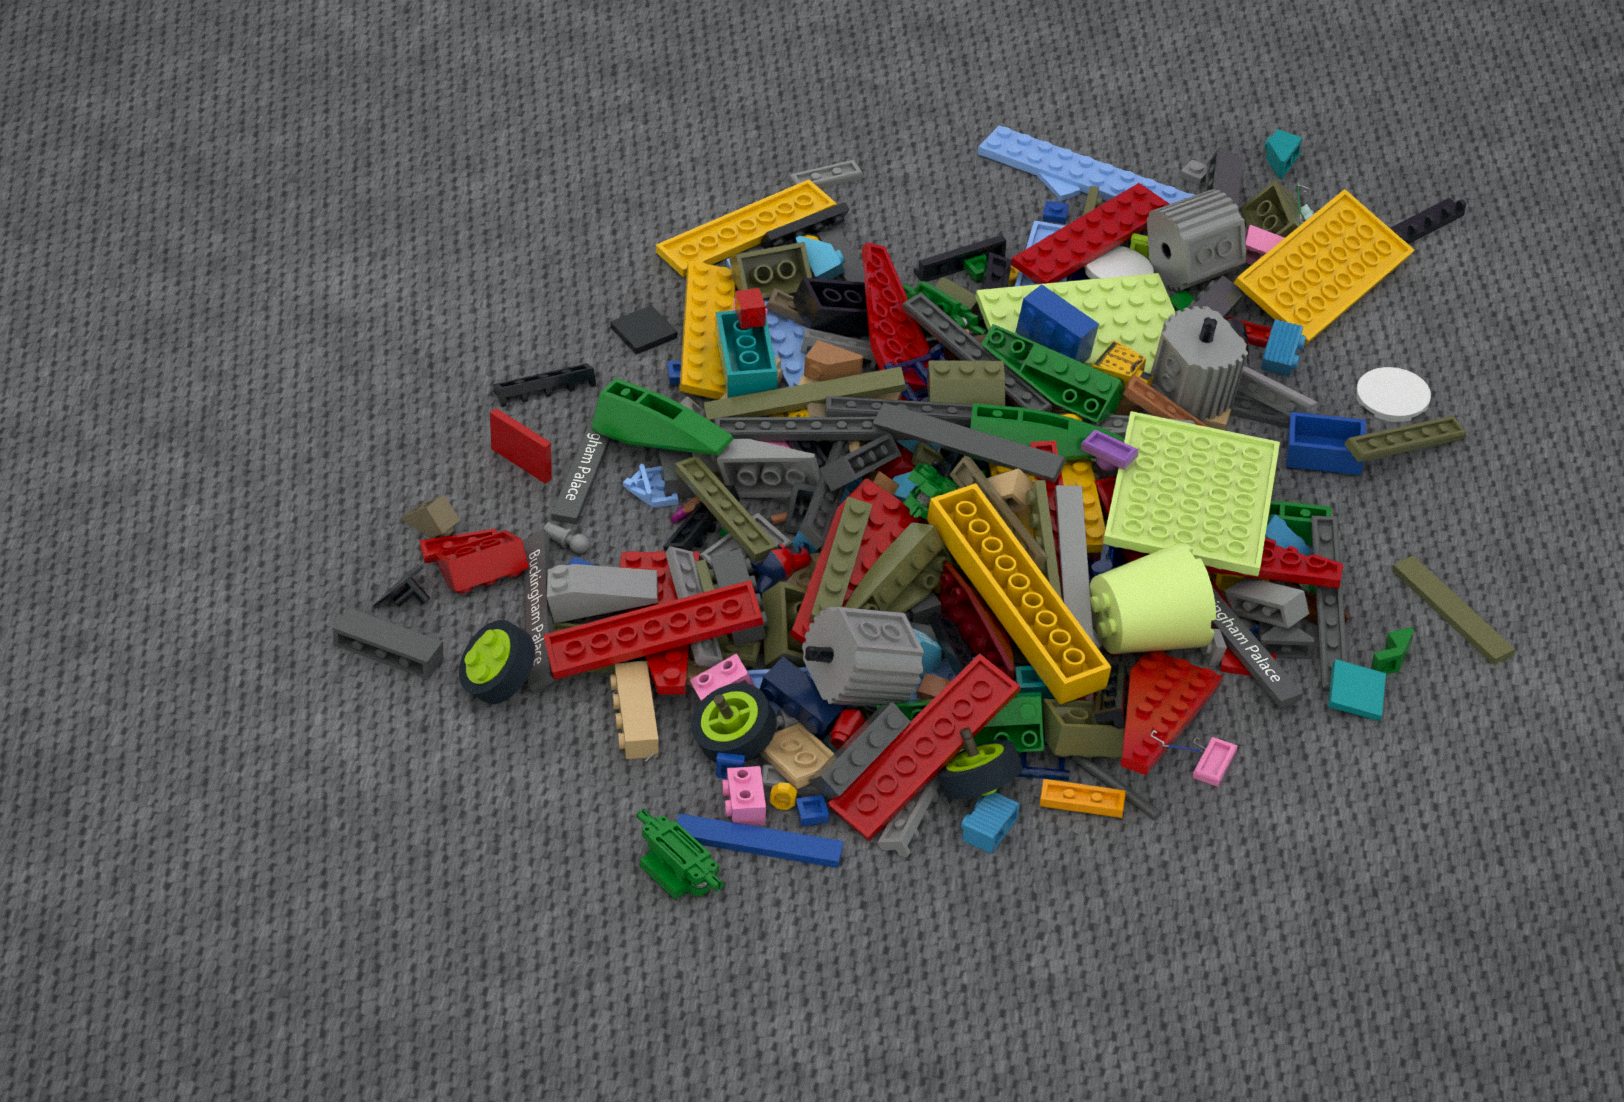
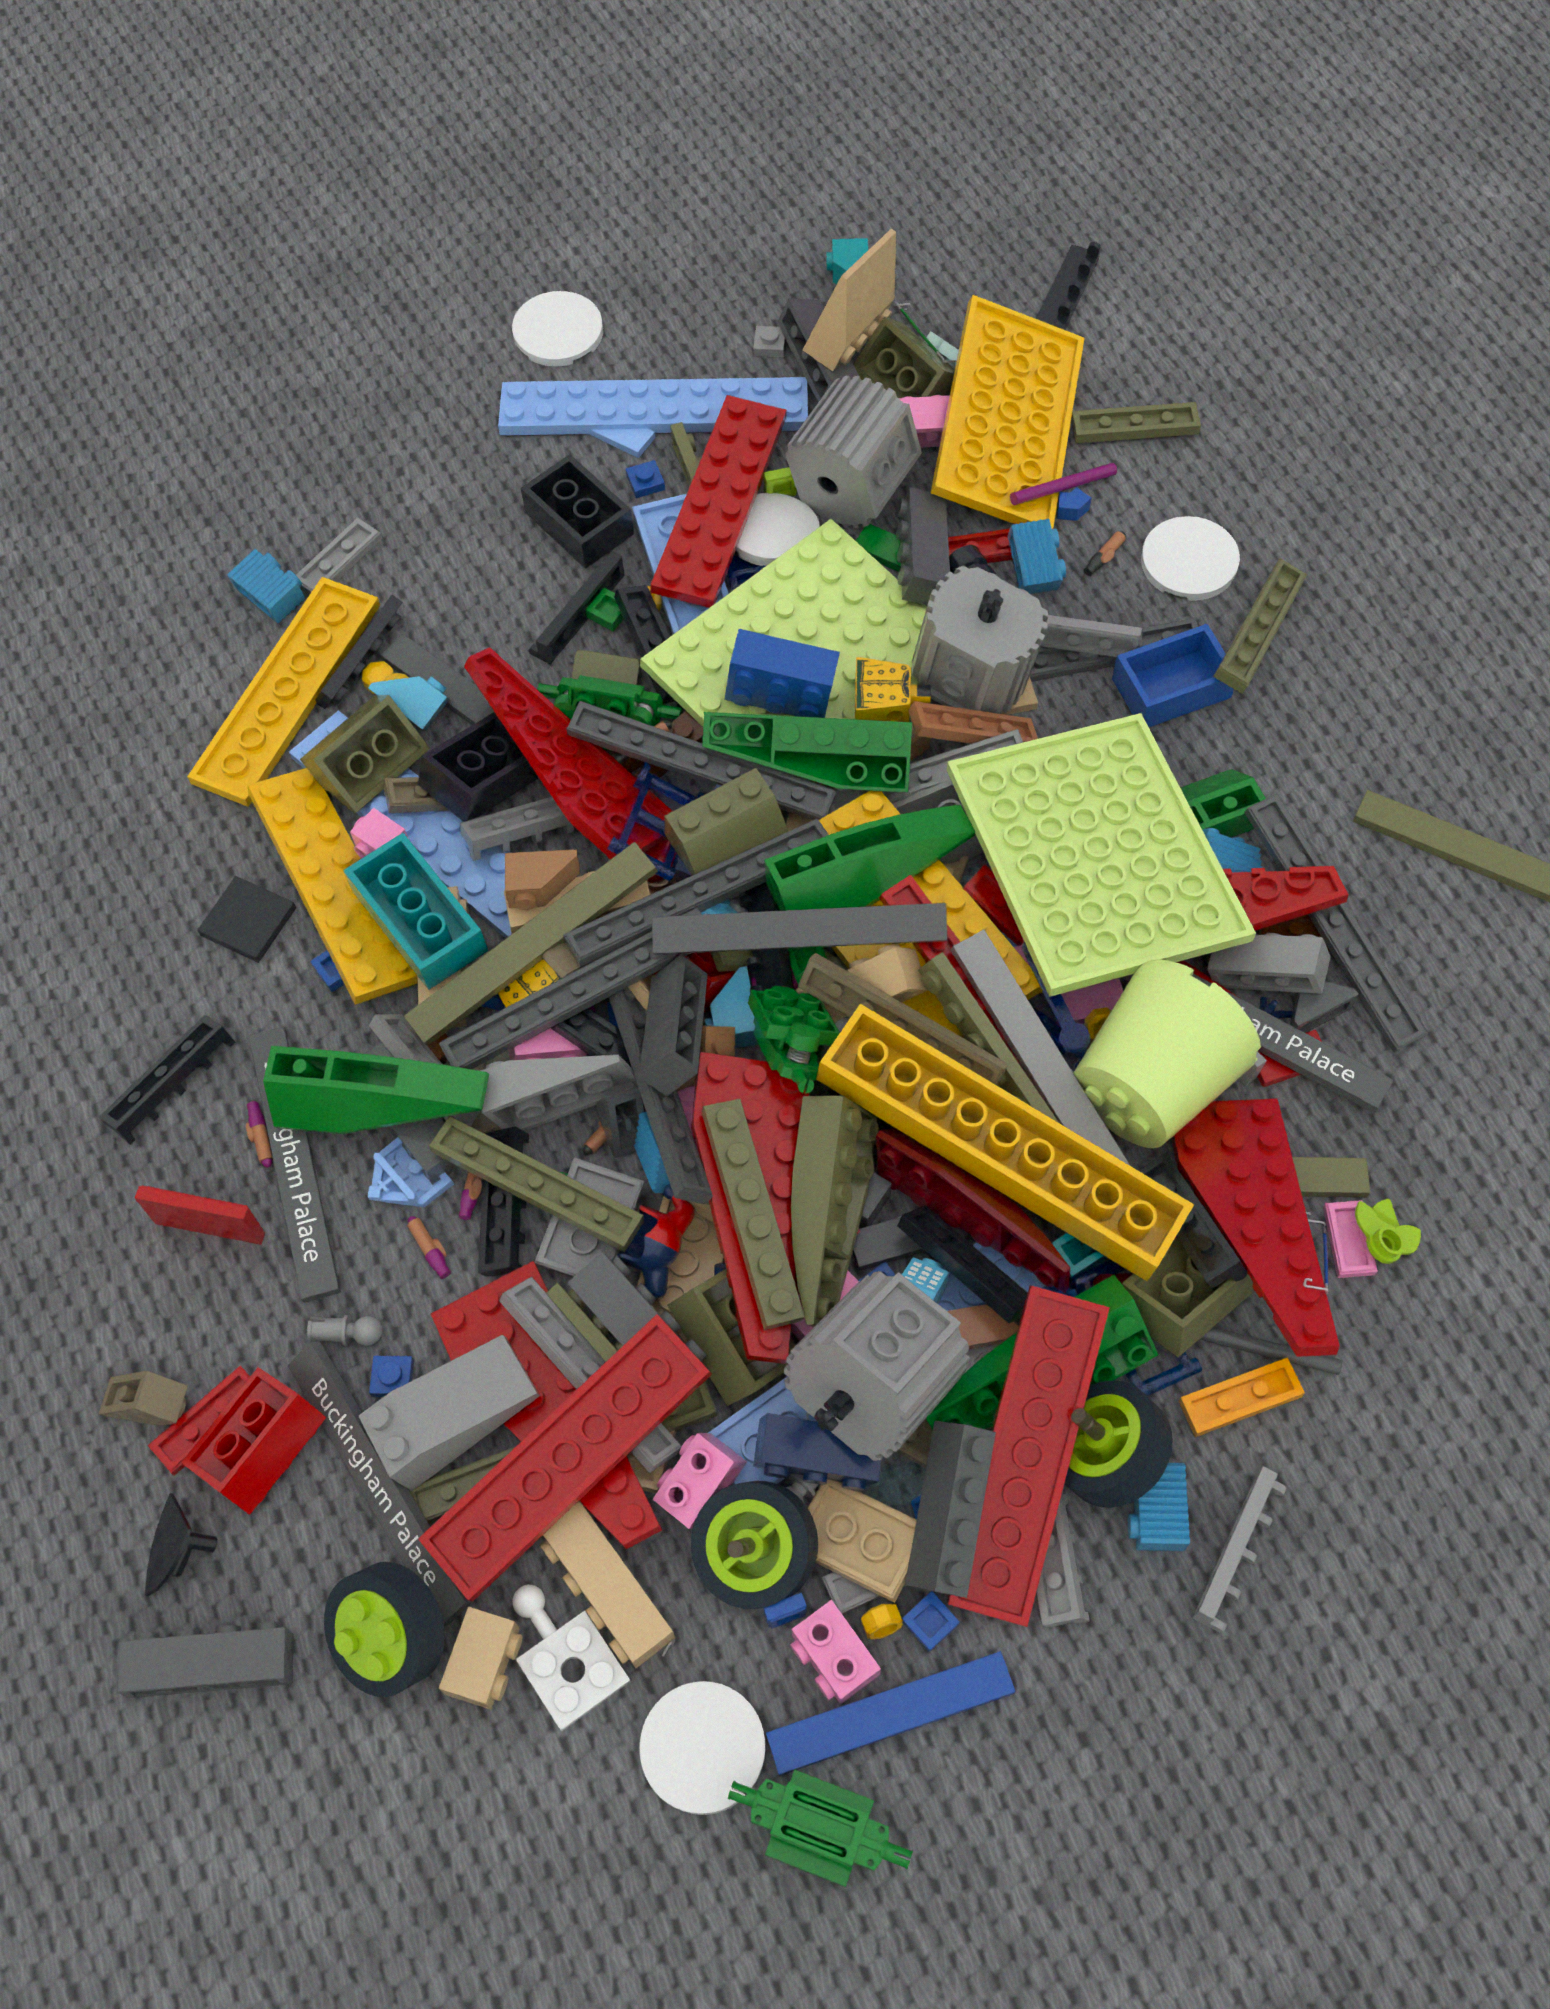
camera: 25 degrees left, 20 degrees up
(540, 706) = (481, 1658): none -> tan brick
(579, 431) = (258, 1133): none -> piece
(599, 728) = (545, 1661): none -> white plate
(628, 794) = (699, 1744): none -> white tile
(643, 526) = (431, 1248): none -> piece
(750, 308) = (390, 849): red brick -> none
(771, 170) = (266, 585): none -> dark azure brick
(845, 726) = (904, 1469): red brick -> none
(996, 206) = (577, 511): none -> black brick
(1022, 859) = (1236, 1549): none -> light grey hinge
(1057, 111) = (557, 328): none -> white tile
(1109, 451) = (969, 844): medium lavender tile -> none
(1226, 727) = (1332, 1176): none -> olive tile
(1239, 764) = (1383, 1234): none -> lime plate
(1258, 159) = (856, 306): none -> tan slope
(1332, 370) = (1105, 554): none -> piece
(1333, 335) = (1073, 504): none -> blue piece
(1334, 318) = (1063, 483): none -> magenta bar
(1357, 690) = (1442, 1035): teal tile -> none
(1395, 651) = (1446, 945): green slope -> none
(1413, 308) = (1135, 422): none -> olive plate

